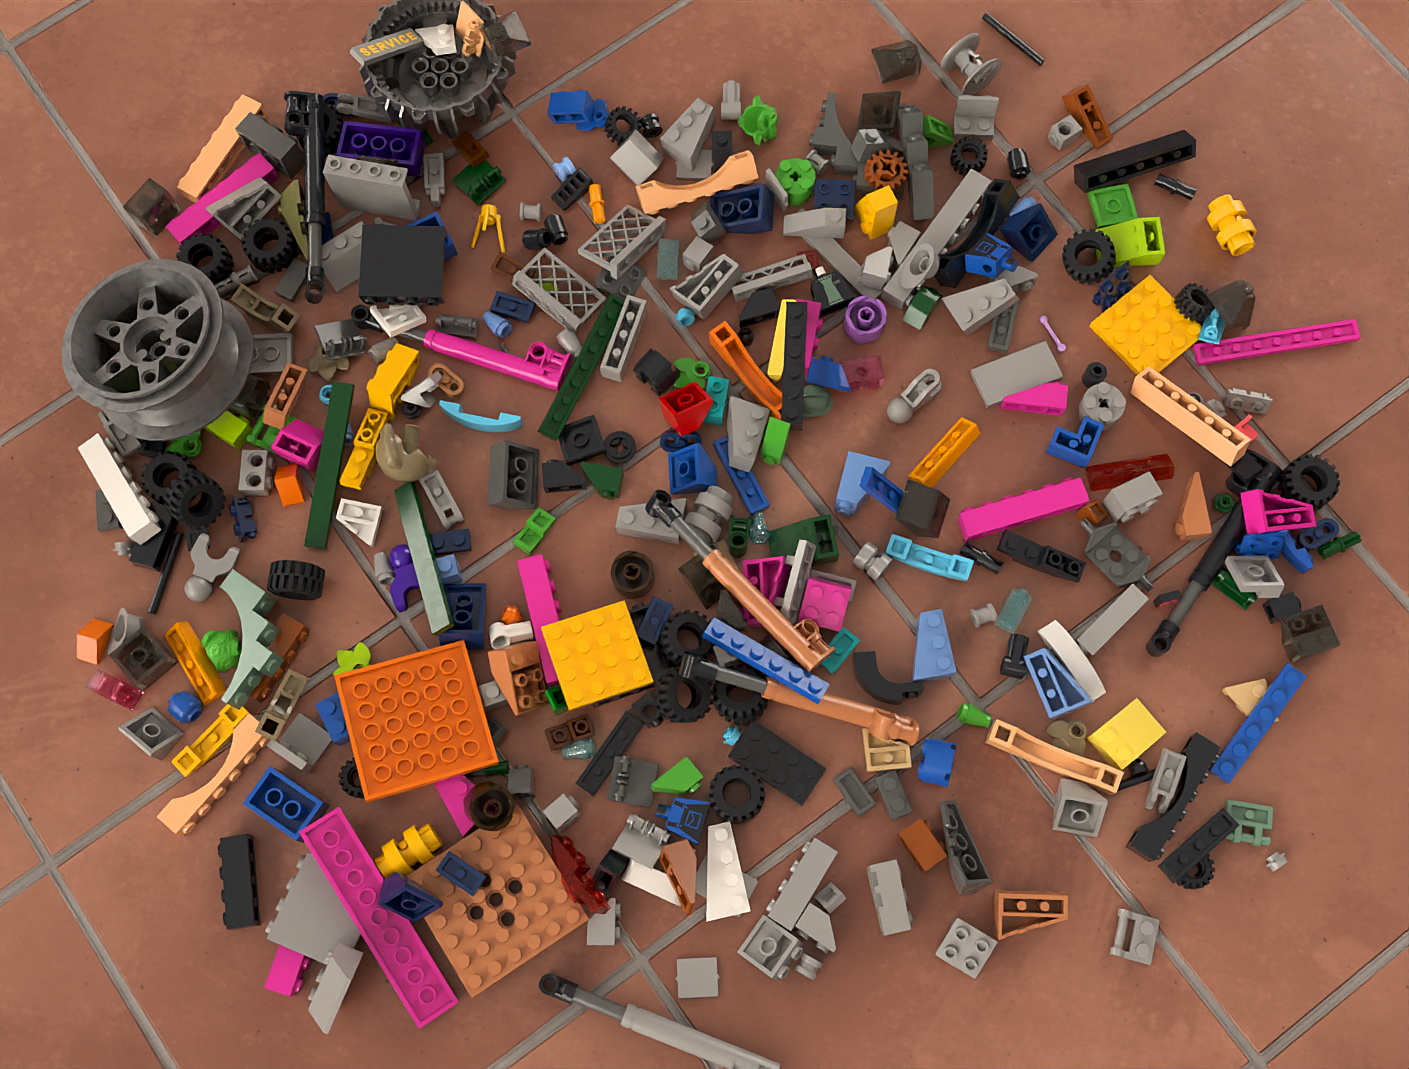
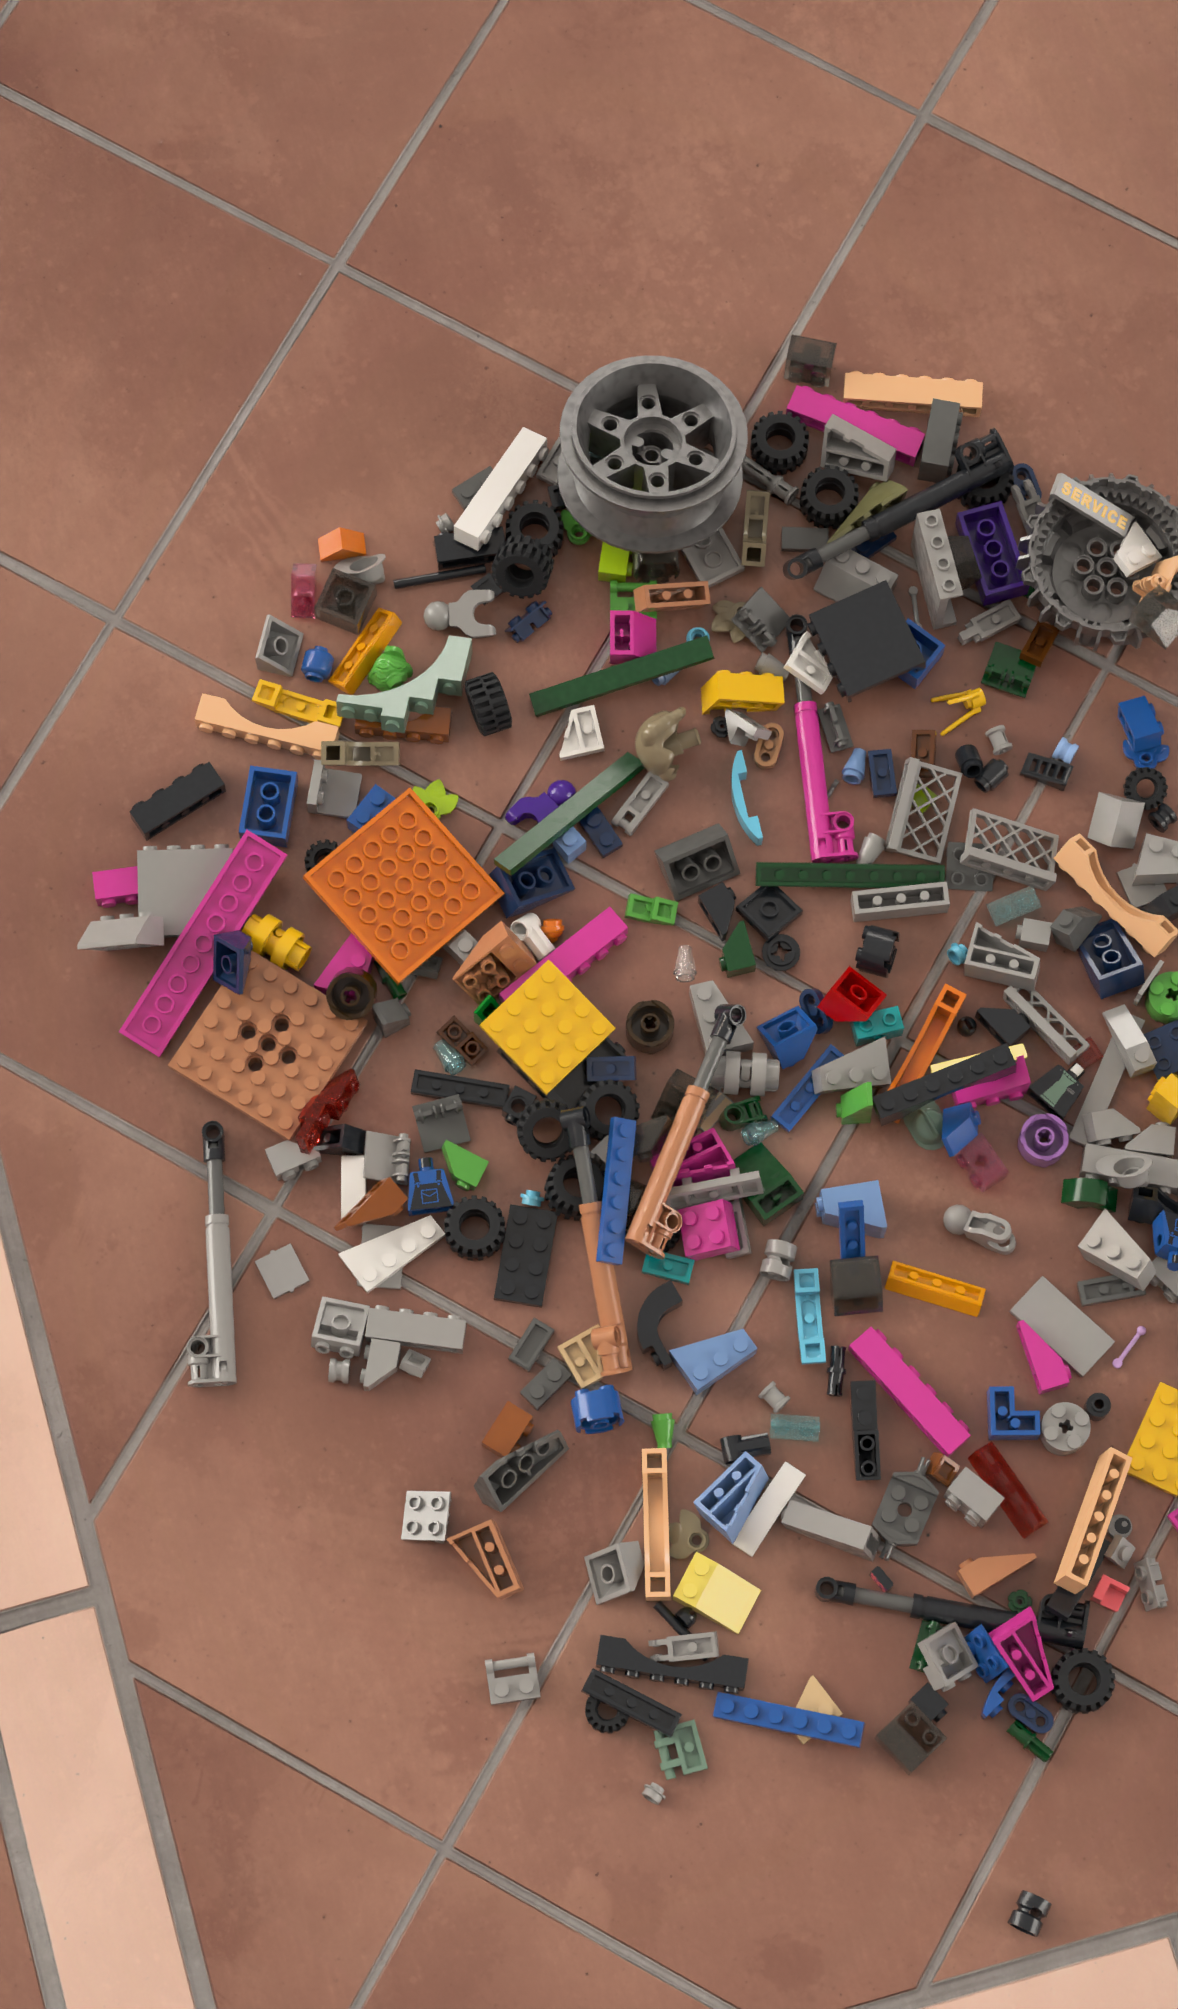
camera: 60 degrees right, 0 degrees up
(250, 474) = (577, 604): light grey brick -> none
(289, 485) = (585, 647): orange slope -> none
(364, 453) = (647, 703): yellow slope -> none
(383, 569) = (541, 781): light grey cone -> none
(461, 873) = (277, 998): dark blue plate -> none
(563, 812) = (379, 1068): light grey brick -> none
(595, 525) = (685, 966): none -> clear cone
(597, 203) = (1043, 804): light orange axle -> none
(688, 370) = (896, 987): bright green plate -> none
(889, 897) = (441, 1419): light grey wedge -> none

